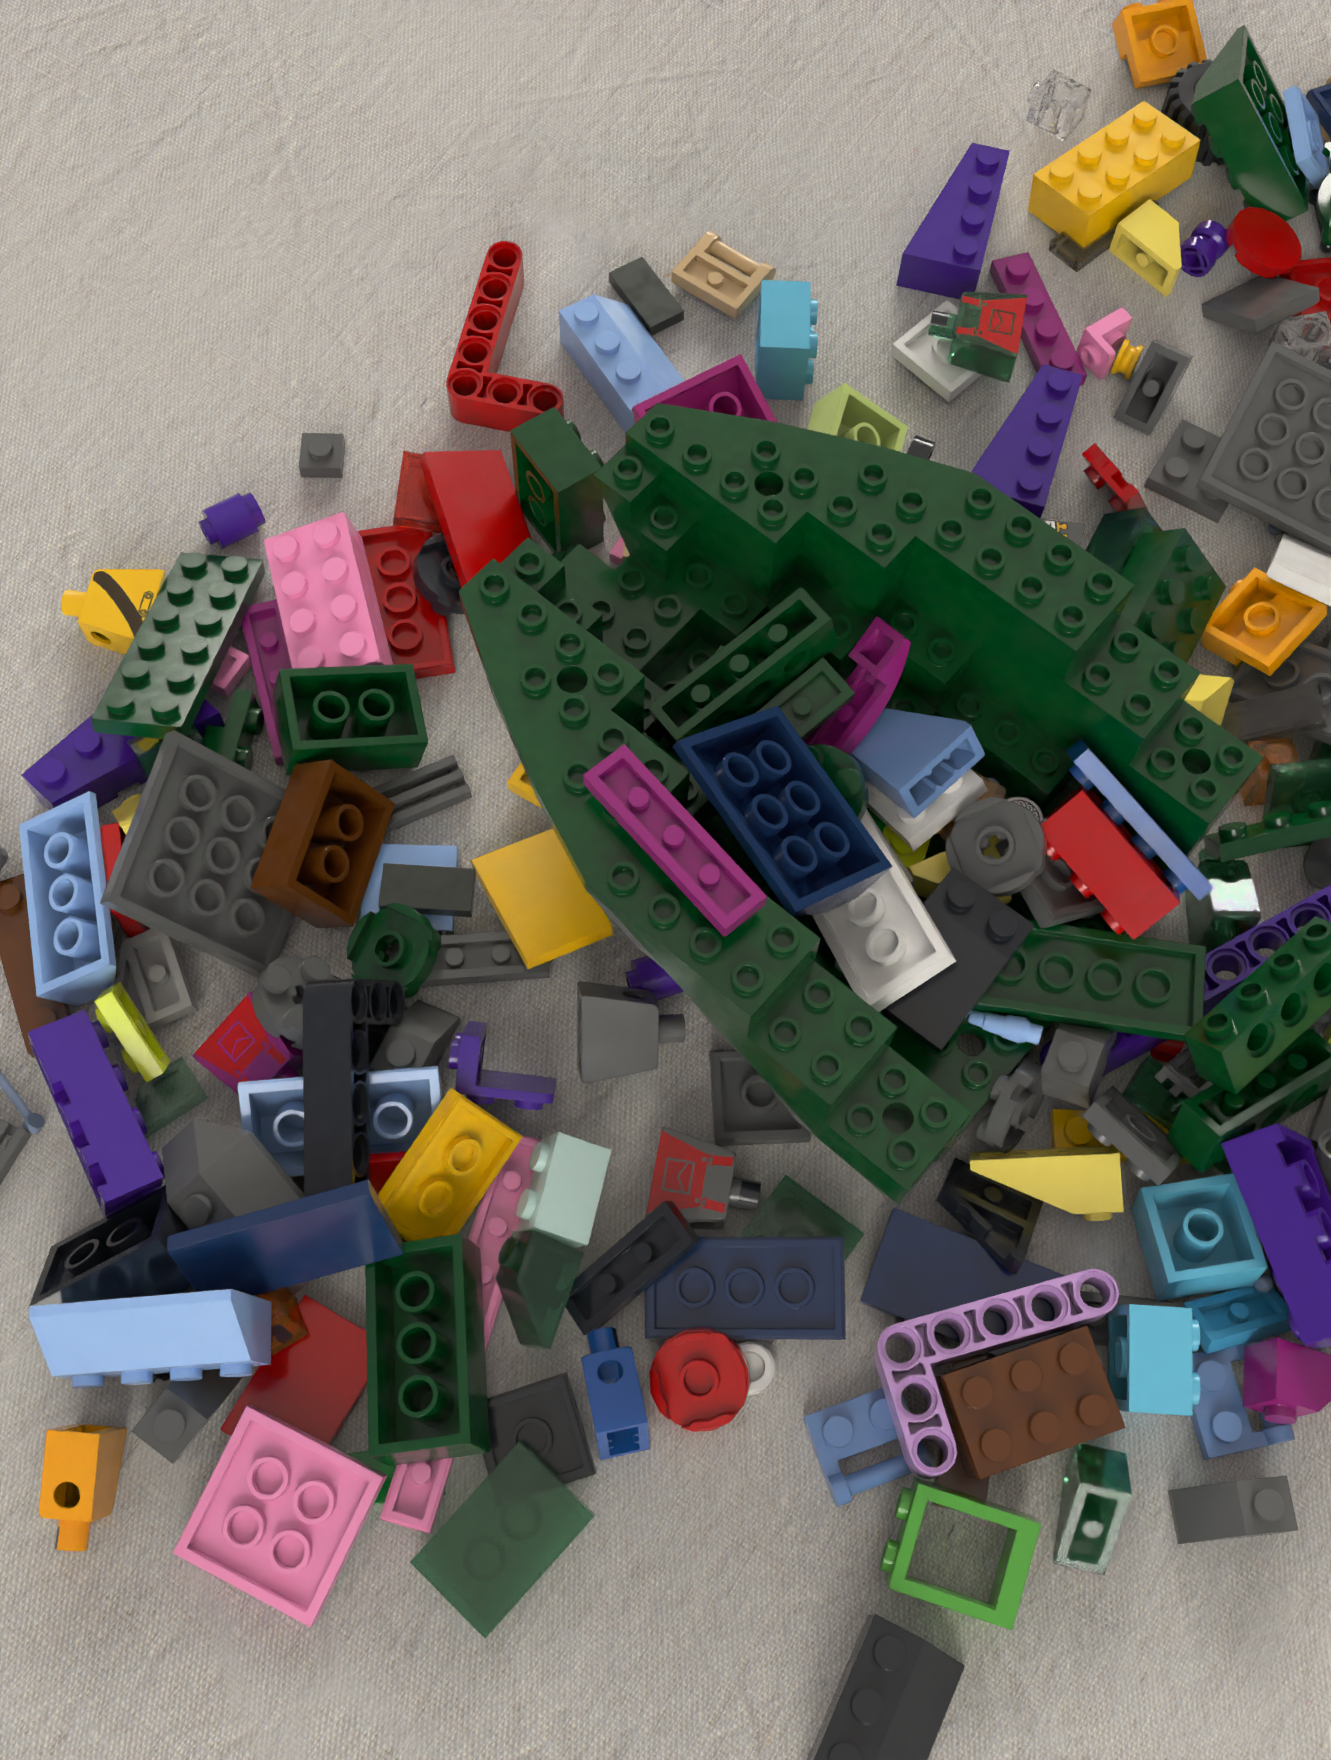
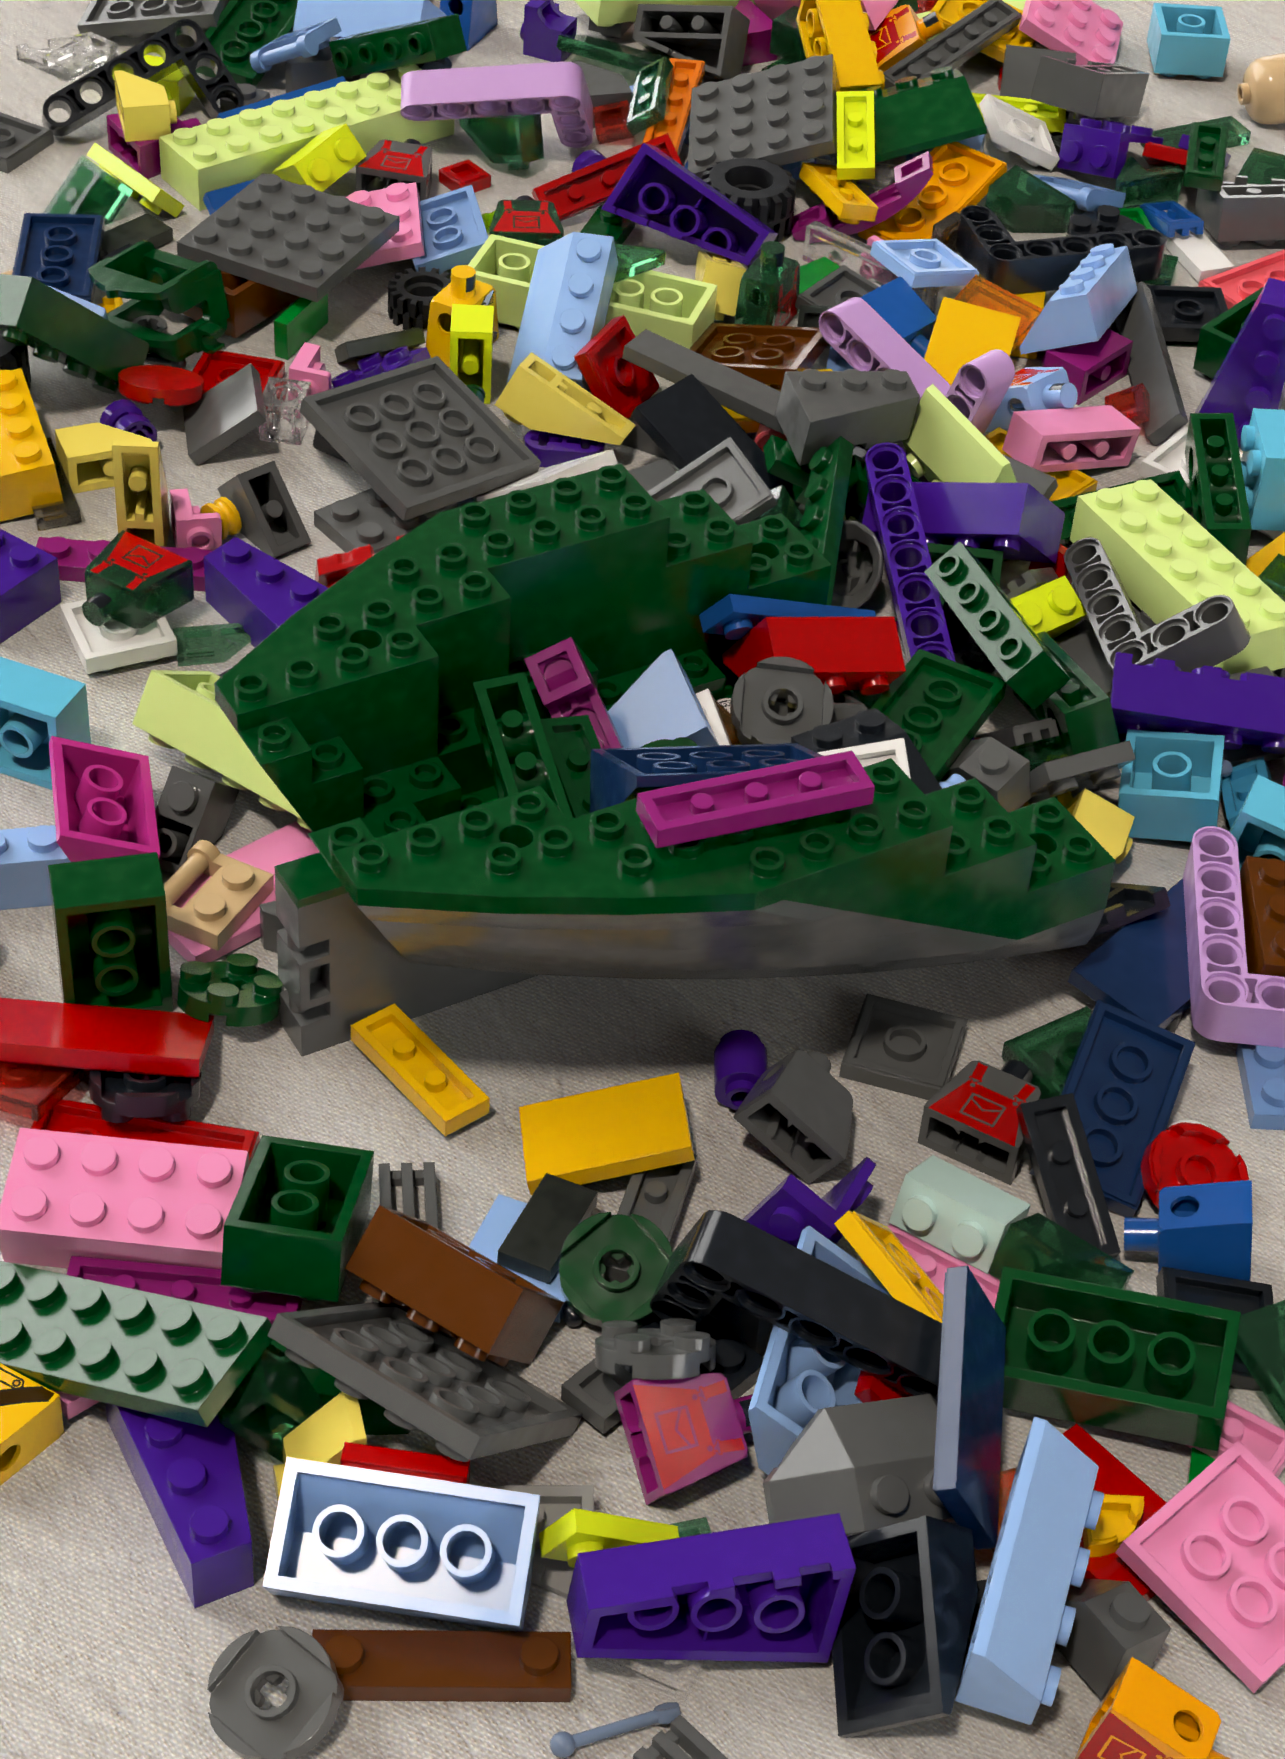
camera: 70 degrees left, 25 degrees down
(289, 1393) = (1117, 1521): none -> yellow tile
(974, 415) = (209, 643): none -> clear green tile
(1085, 290) = (141, 490): none -> light yellow slope

